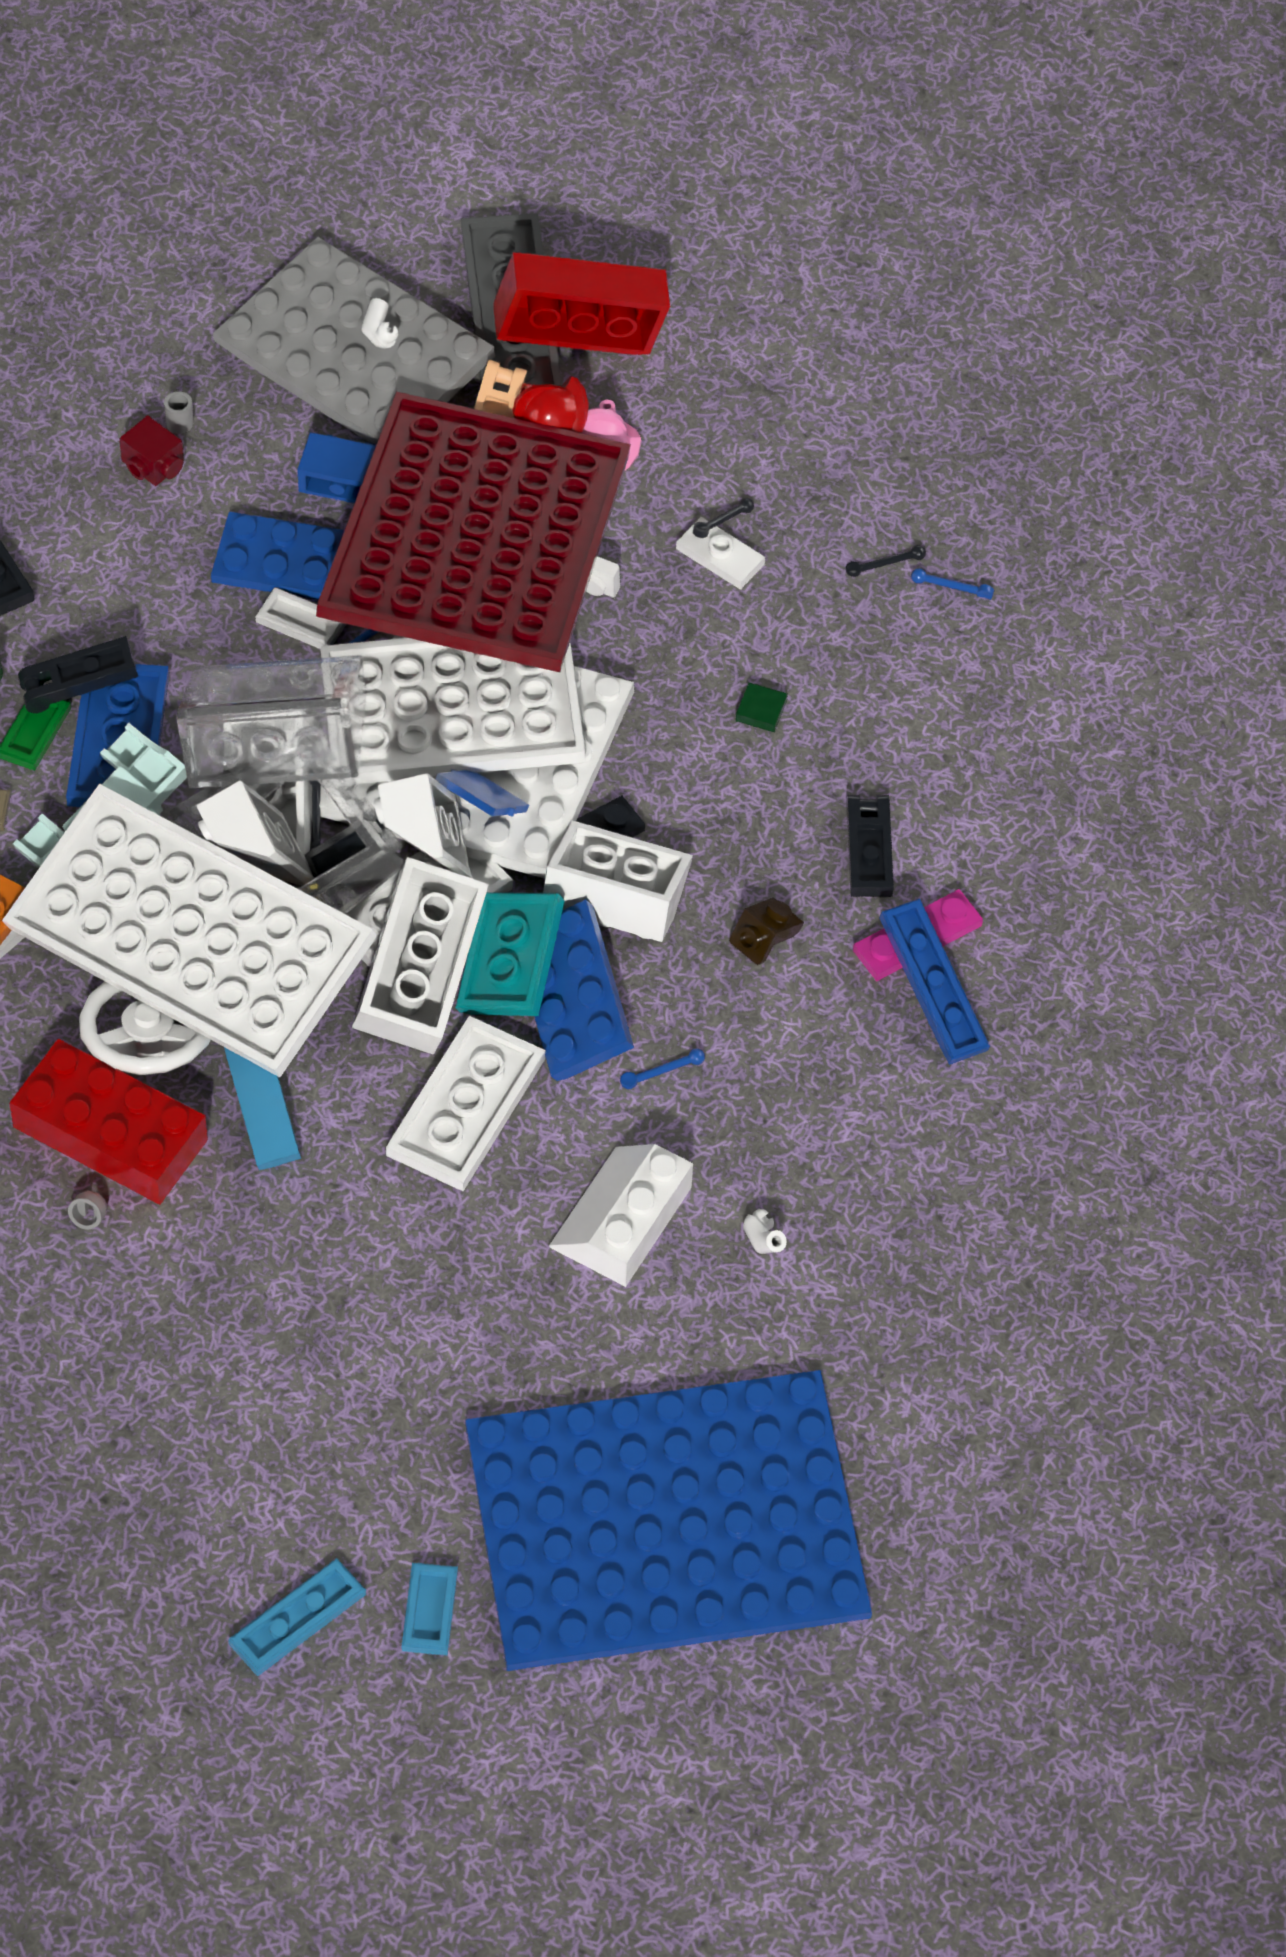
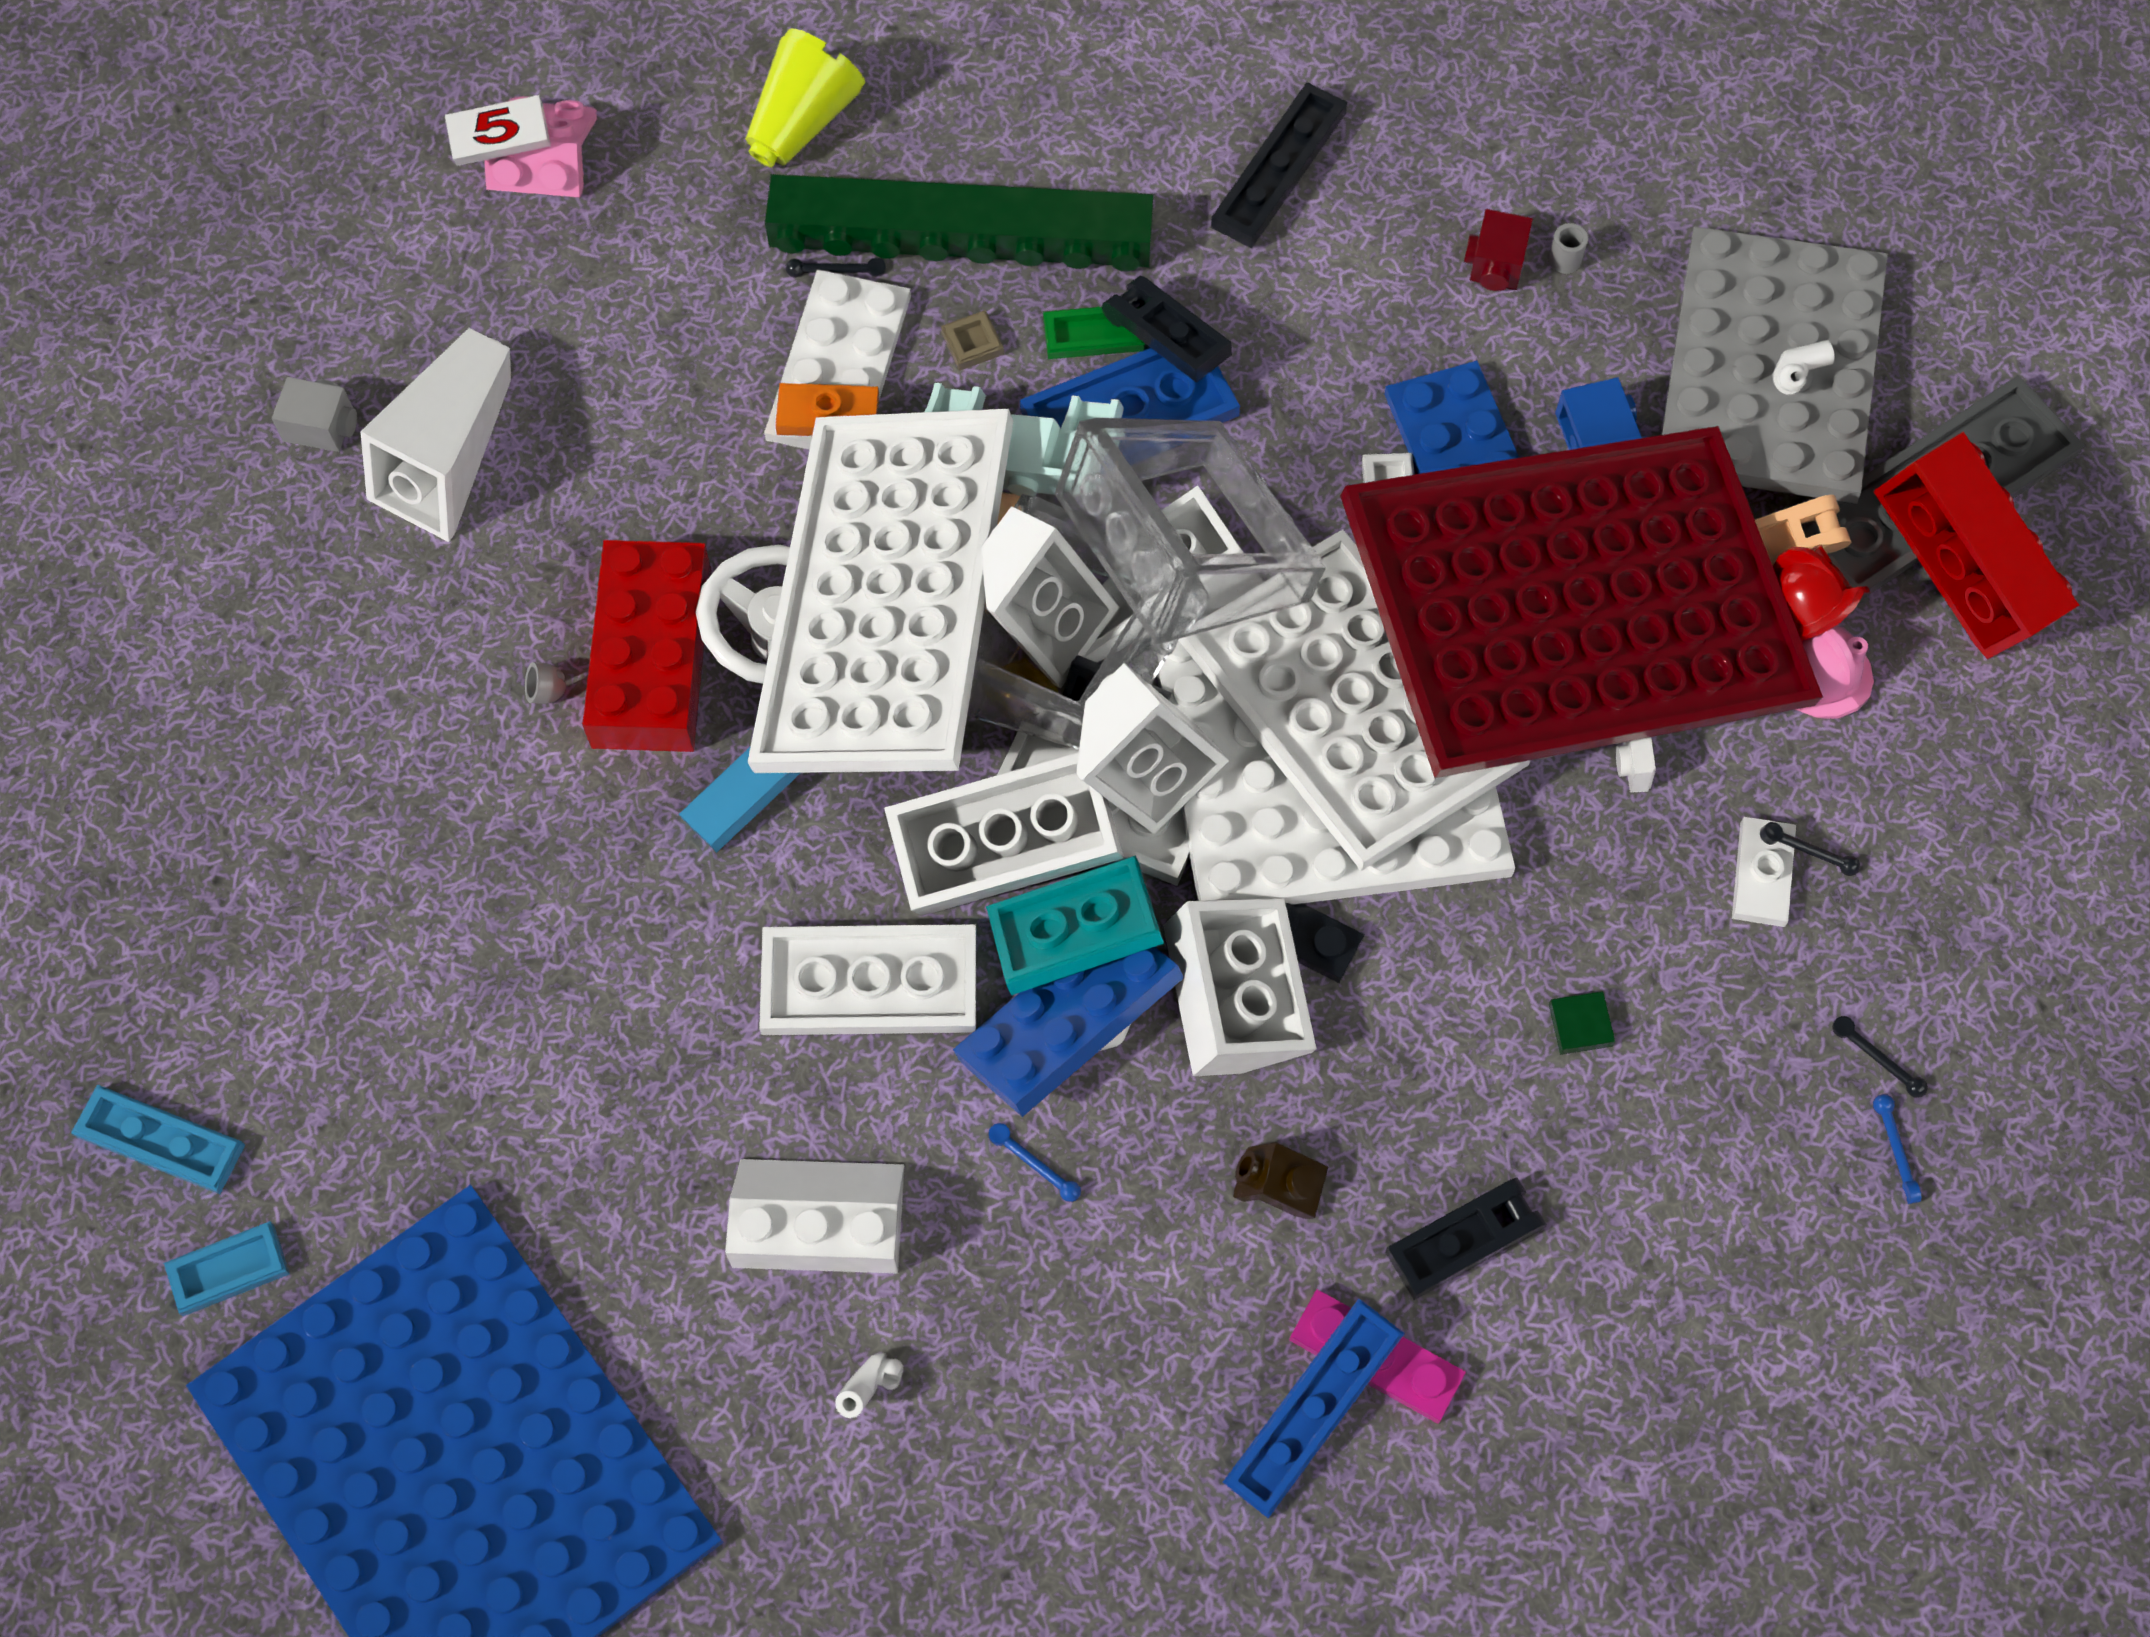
camera: 65 degrees right, 10 degrees up
(482, 793) = (1241, 784): blue piece -> none

